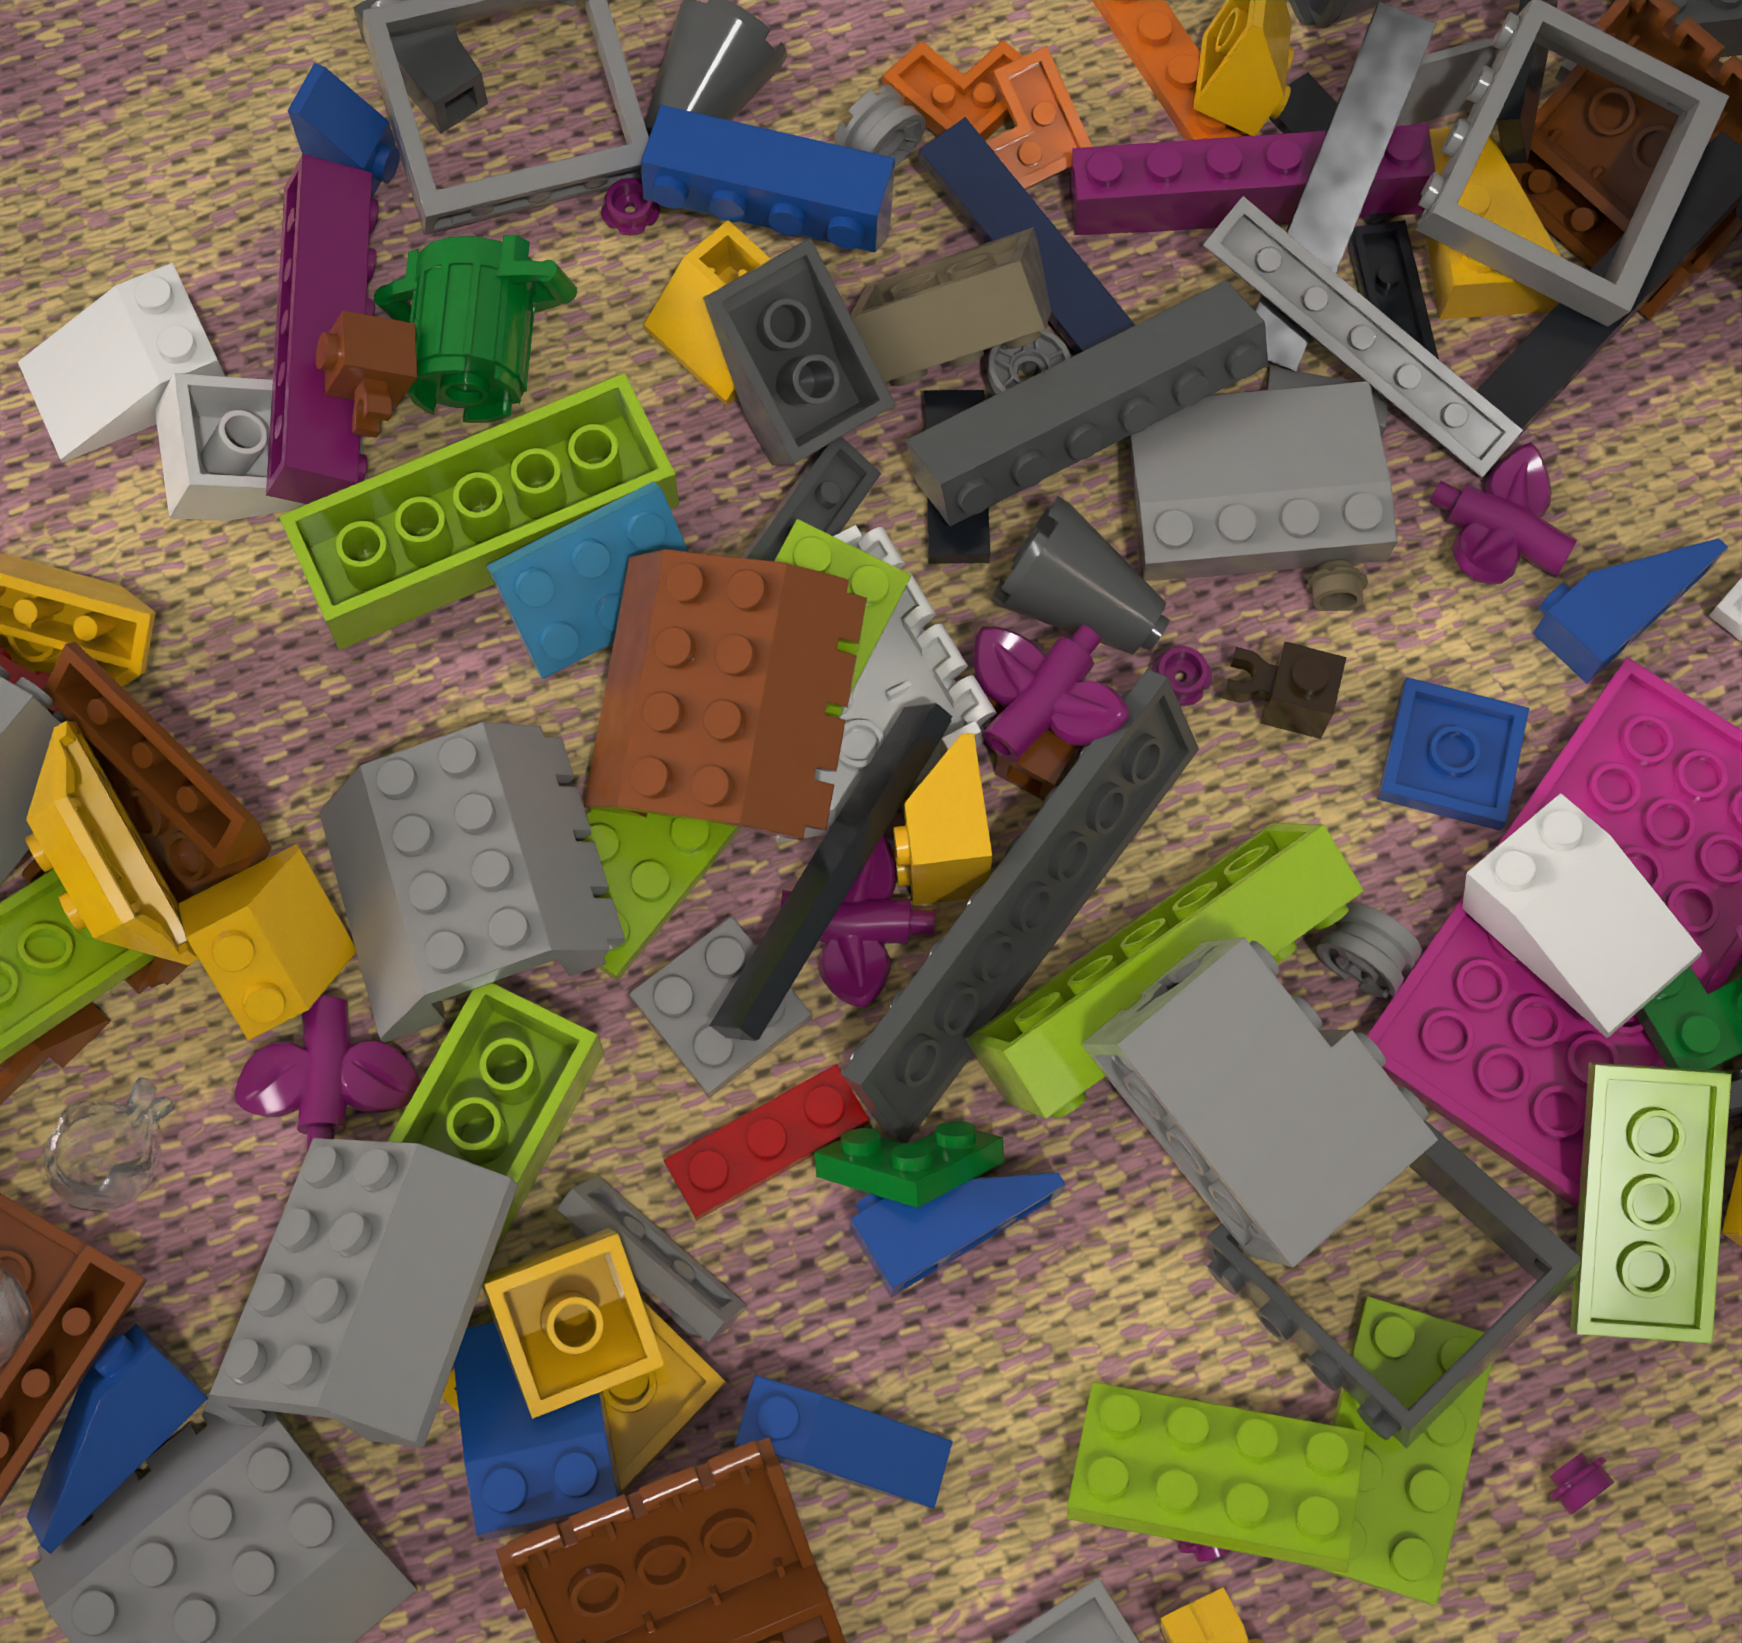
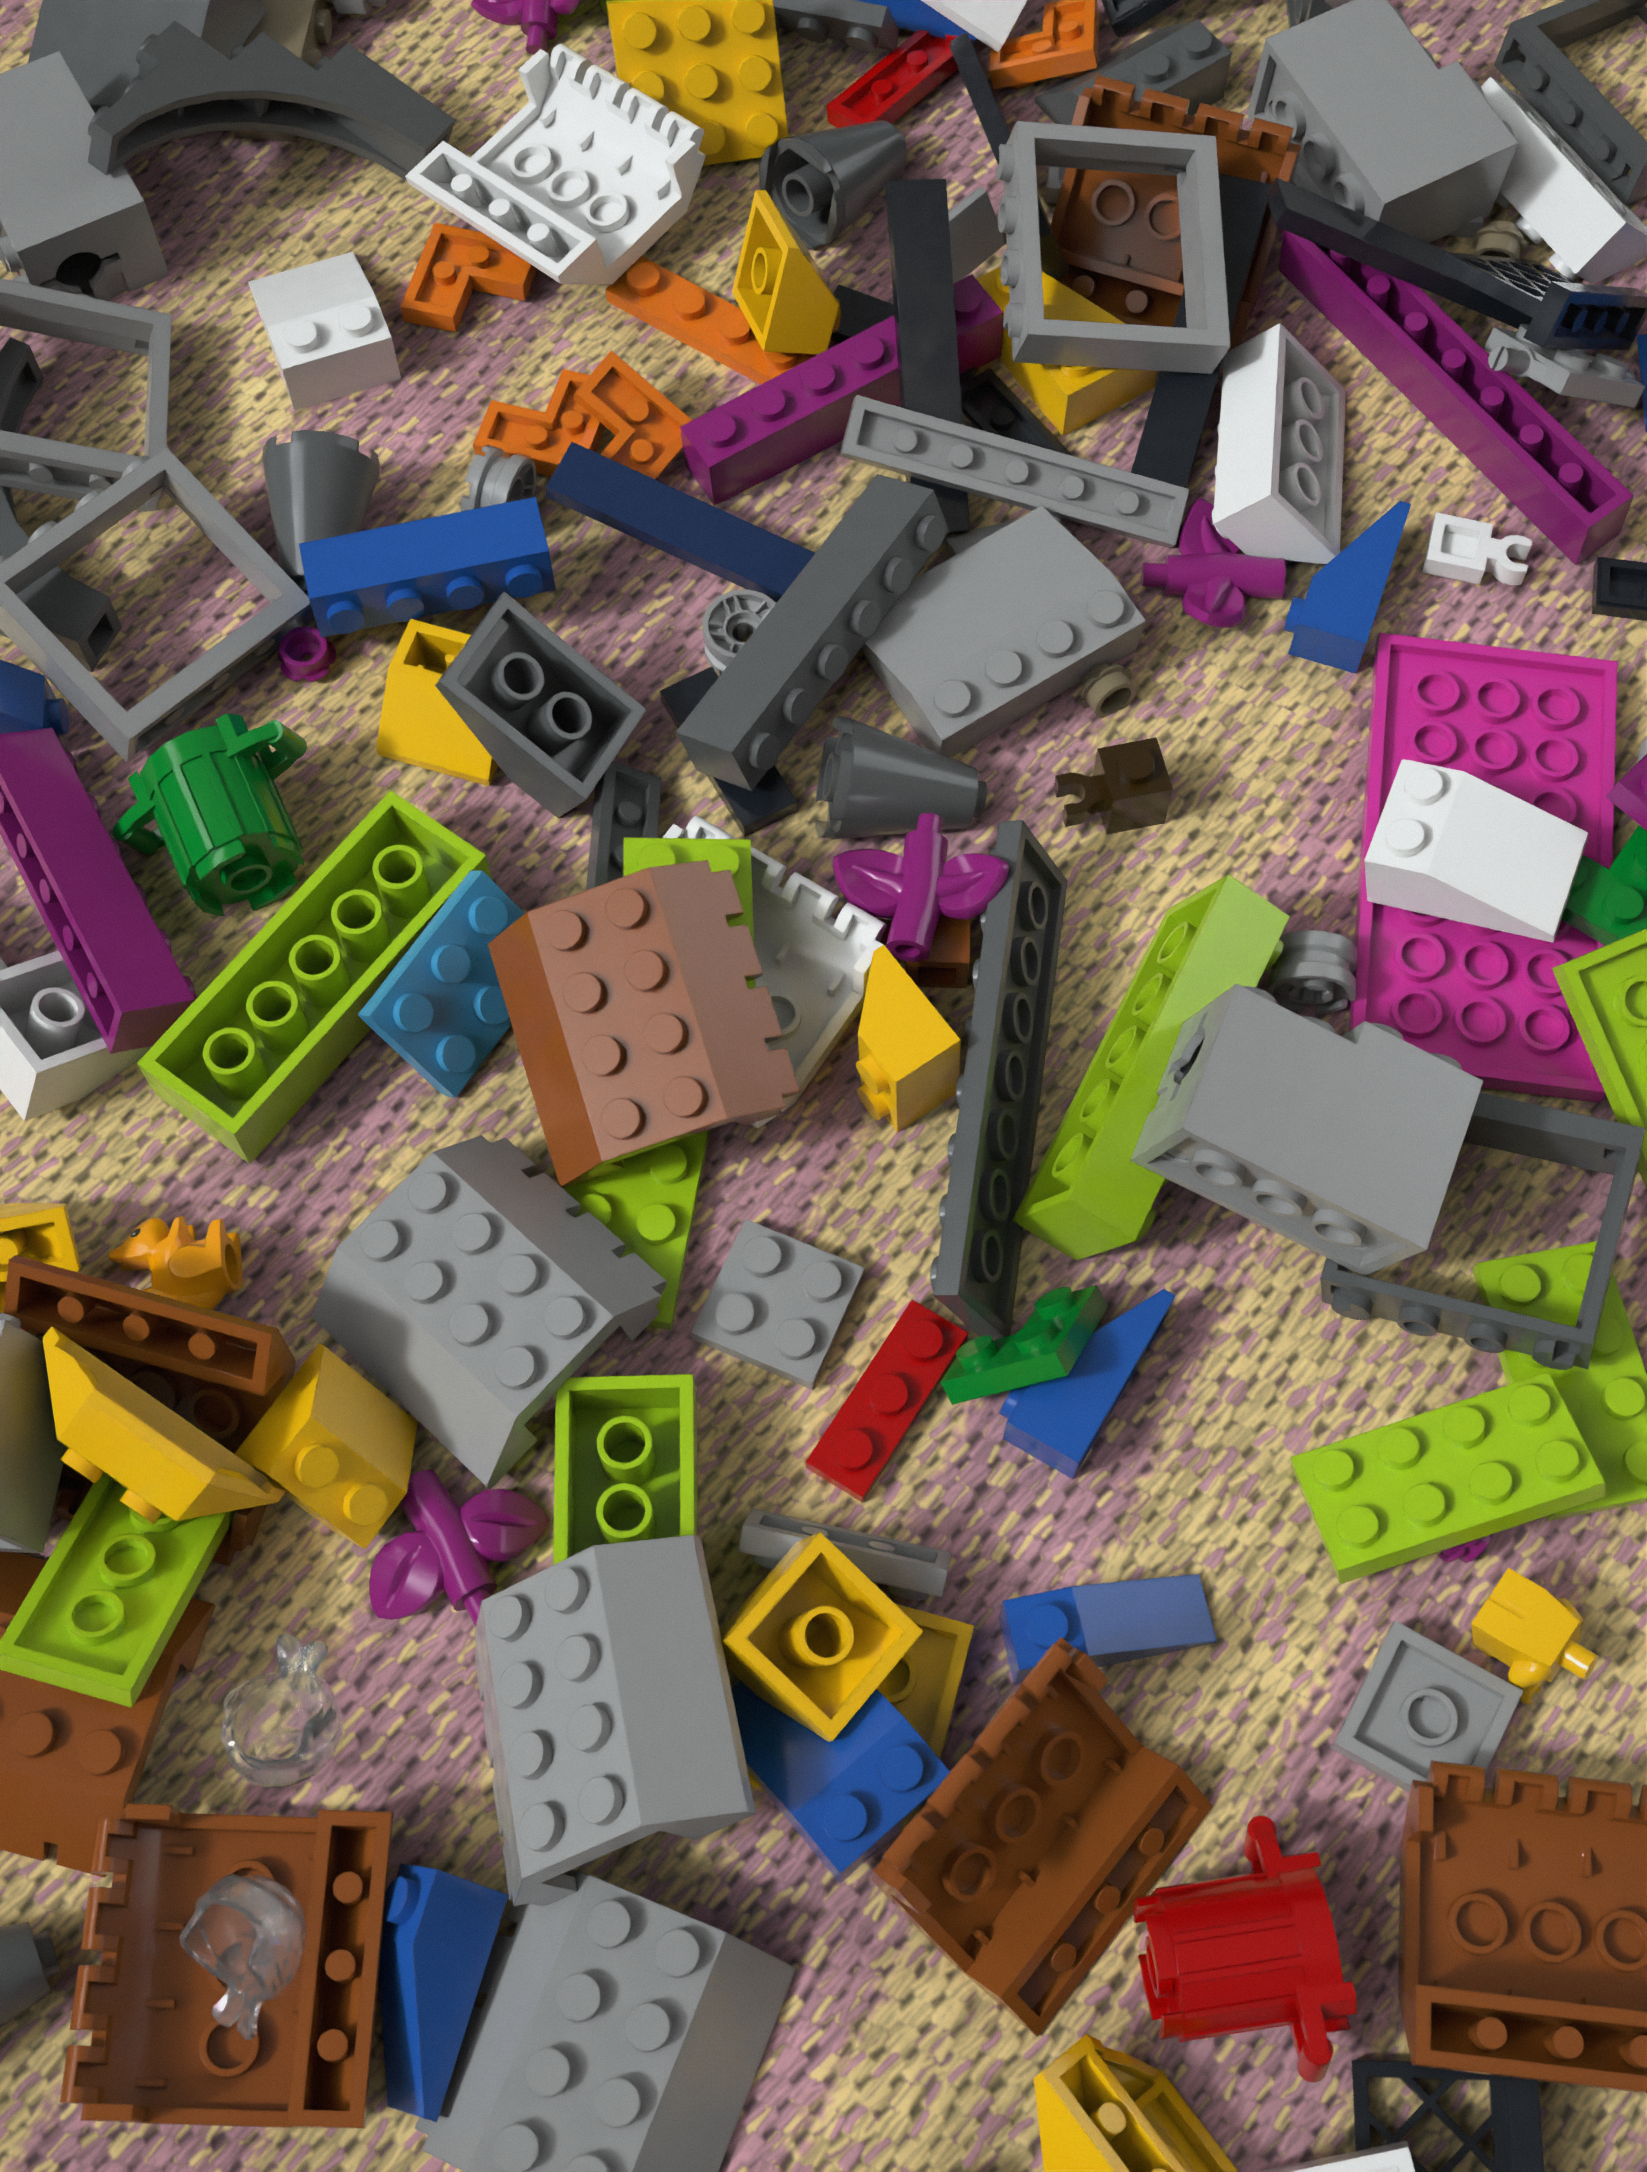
camera: 25 degrees left, 5 degrees down
(233, 718) = (182, 1265): none -> light orange animal
(368, 363) = (149, 888): dark orange brick -> none
(831, 873) = (819, 1134): black tile -> none
(854, 952) = (856, 1165): magenta plant -> none
(955, 308) = (654, 603): dark tan slope -> none
(1192, 665) = (1020, 809): magenta plate -> none
(1453, 754) = (1283, 780): blue plate -> none
(1634, 434) = (1280, 451): none -> white slope

